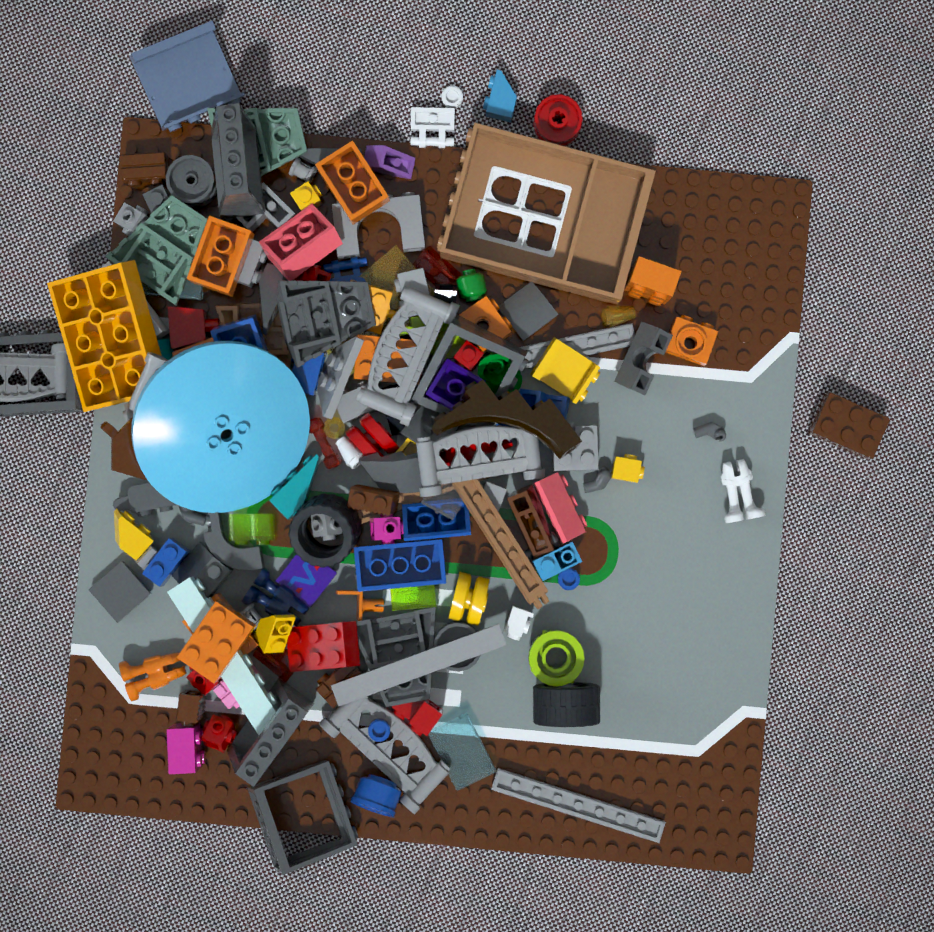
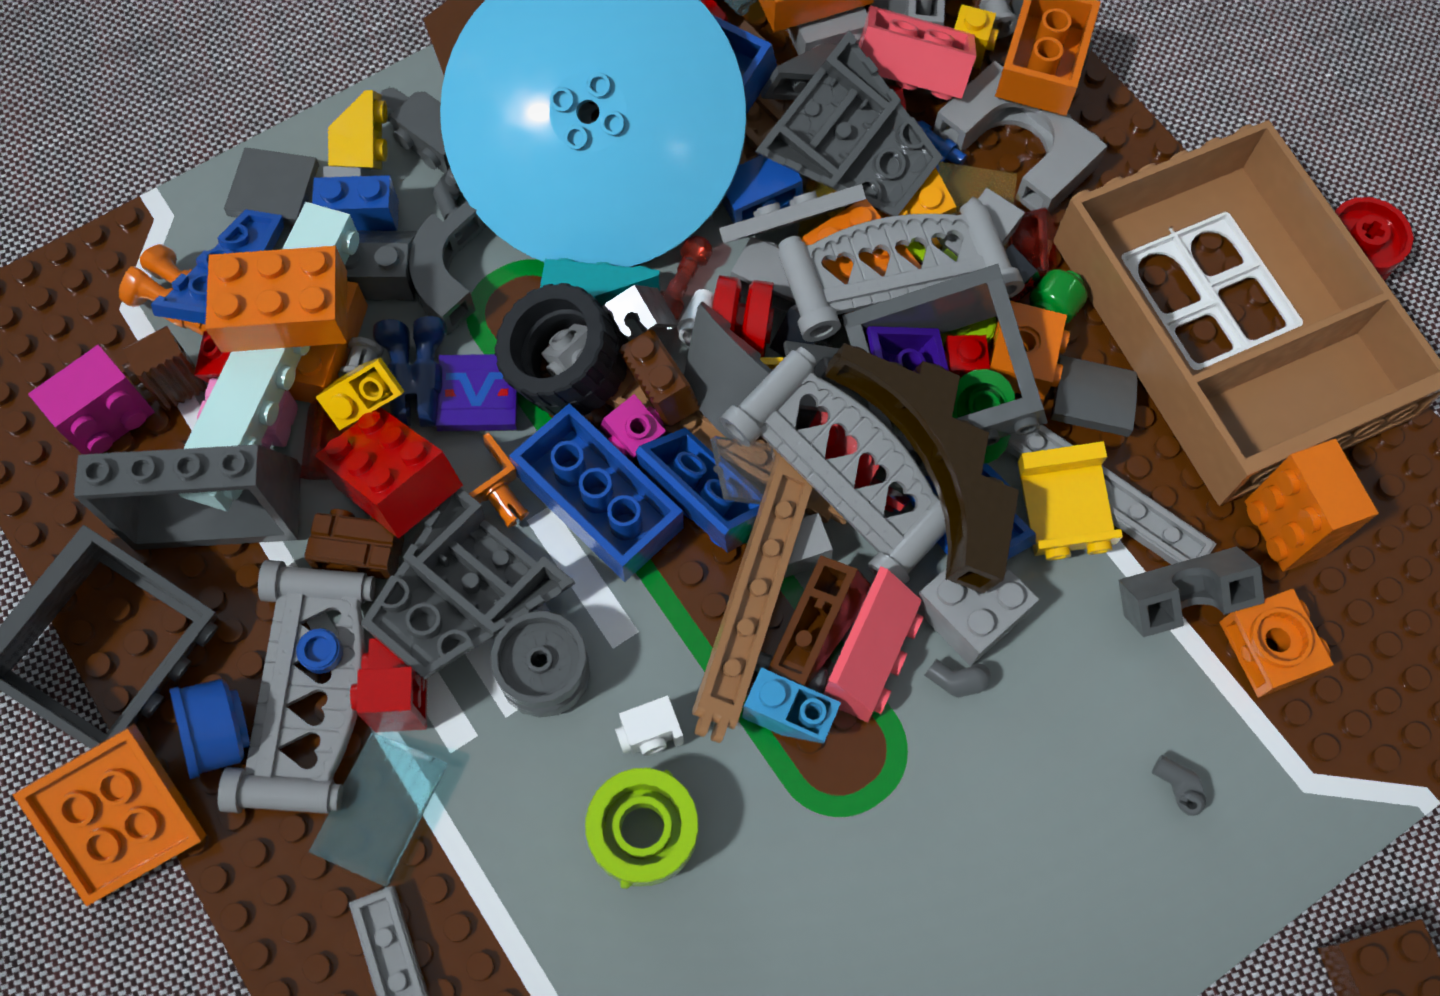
camera: 50 degrees right, 20 degrees down
(158, 646) = (246, 233): none -> blue wing
(218, 732) = (151, 428): red brick -> none
(251, 527) = (489, 273): clear neon green brick -> none
(335, 479) = (642, 305): none -> hinge
(341, 428) = (710, 268): clear yellow plate -> none
(382, 857) = (110, 815): none -> orange plate
(389, 161) = (1109, 93): medium lavender slope -> none
(413, 597) = (565, 545): clear neon green brick -> none
(418, 665) = (468, 620): light grey tile -> none
(432, 120) = (1201, 110): white plate -> none
(452, 97) = (1250, 112): white tile -> none
(470, 599) = (626, 620): yellow wheel -> none
(501, 100) = (1322, 156): dark azure slope -> none
(566, 705) = (580, 901): black tyre -> none
(568, 579) = (778, 755): blue tile -> none
(617, 314) = (1208, 513): clear yellow cone -> none
(627, 469) = (1015, 703): yellow brick -> none
(743, 481) = (1162, 898): white piece -> none

